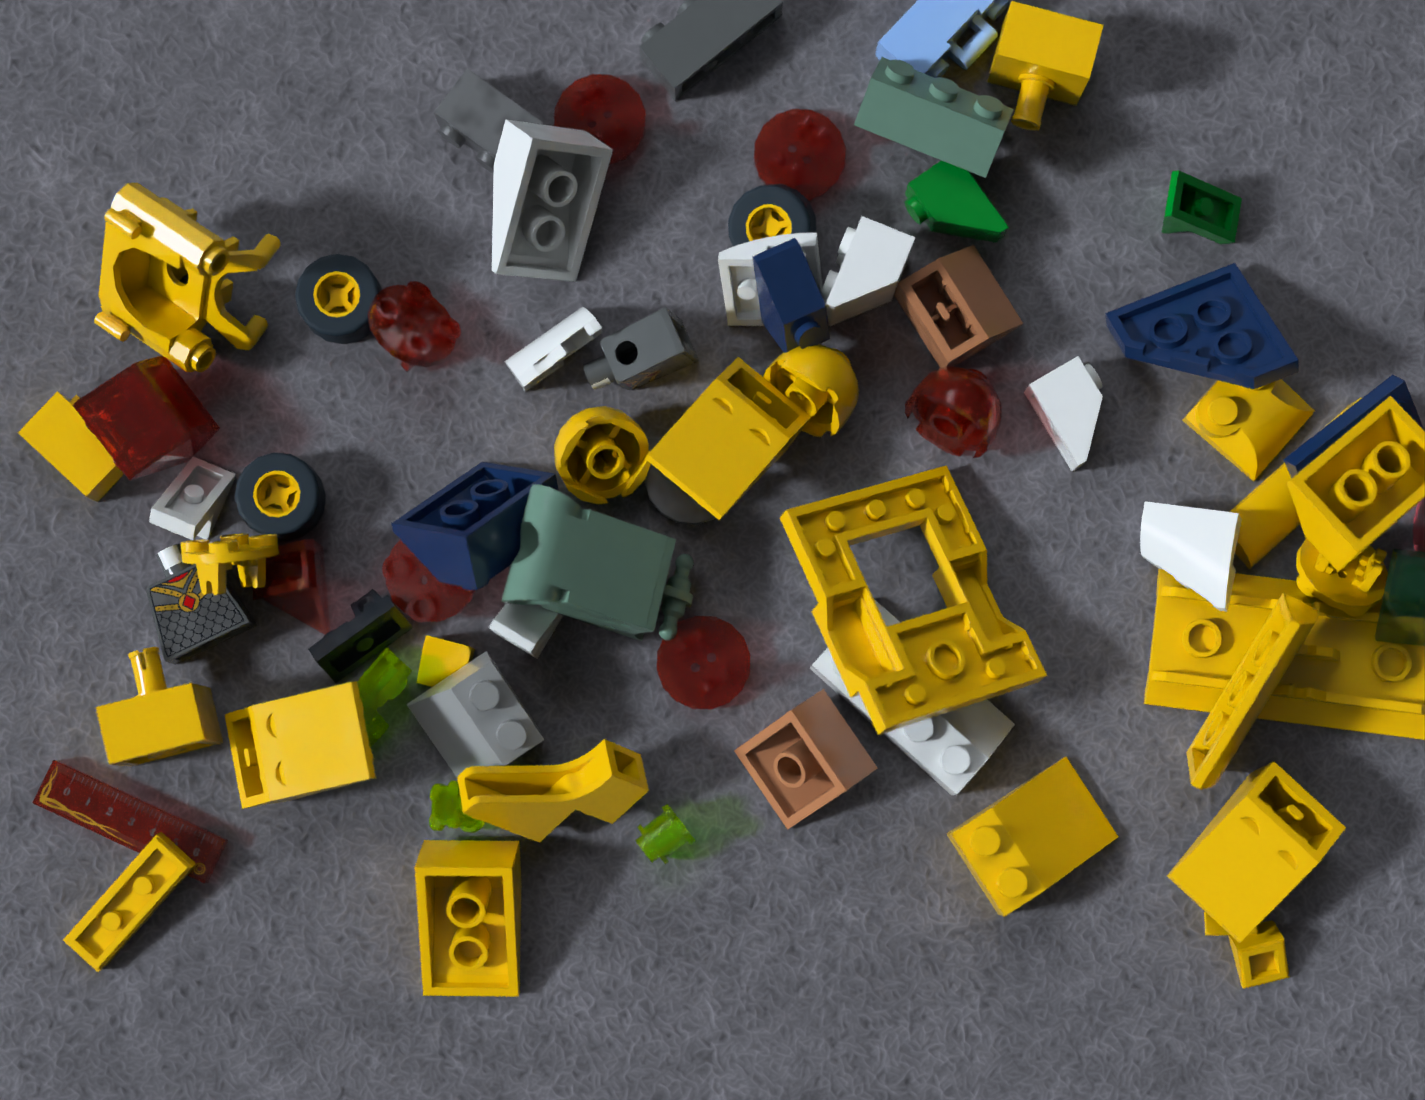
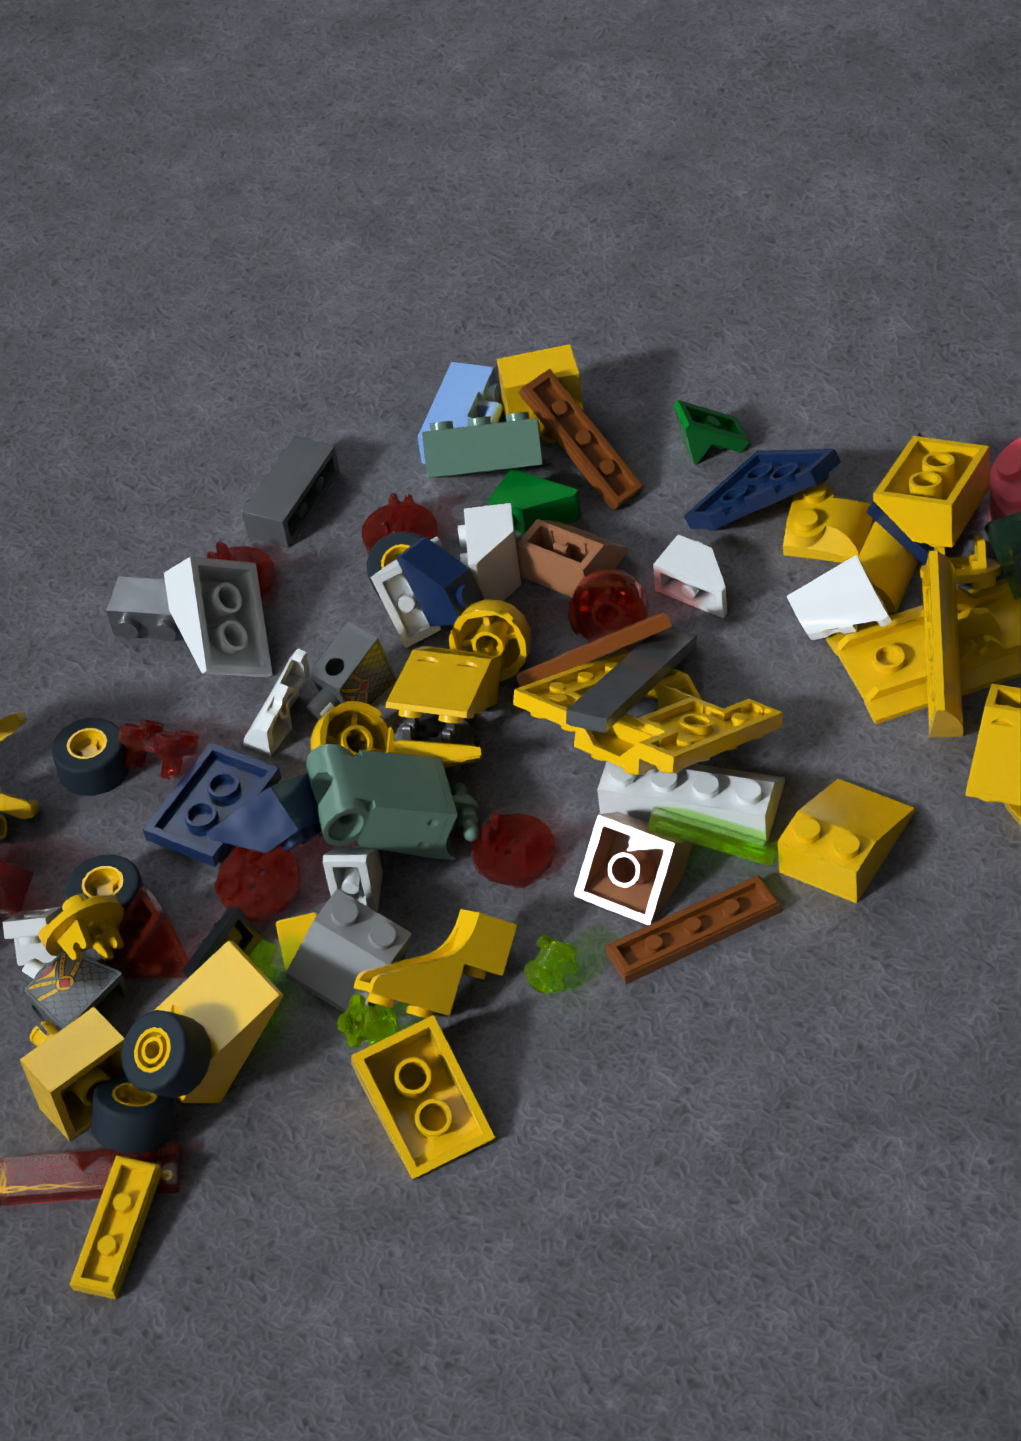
camera: 20 degrees left, 35 degrees down
(203, 775) = (130, 1118): none -> black wheel
(238, 776) = (166, 1054): none -> black wheel
(435, 432) = (204, 797): none -> dark blue plate
(676, 516) = (450, 753): none -> yellow slope
(825, 859) = (692, 929): none -> dark orange tile
(898, 776) = (712, 836): none -> clear neon green tile
(908, 464) = (595, 649): none -> dark orange tile
(916, 552) = (630, 680): none -> dark grey tile
(1047, 157) = (581, 439): none -> dark orange tile

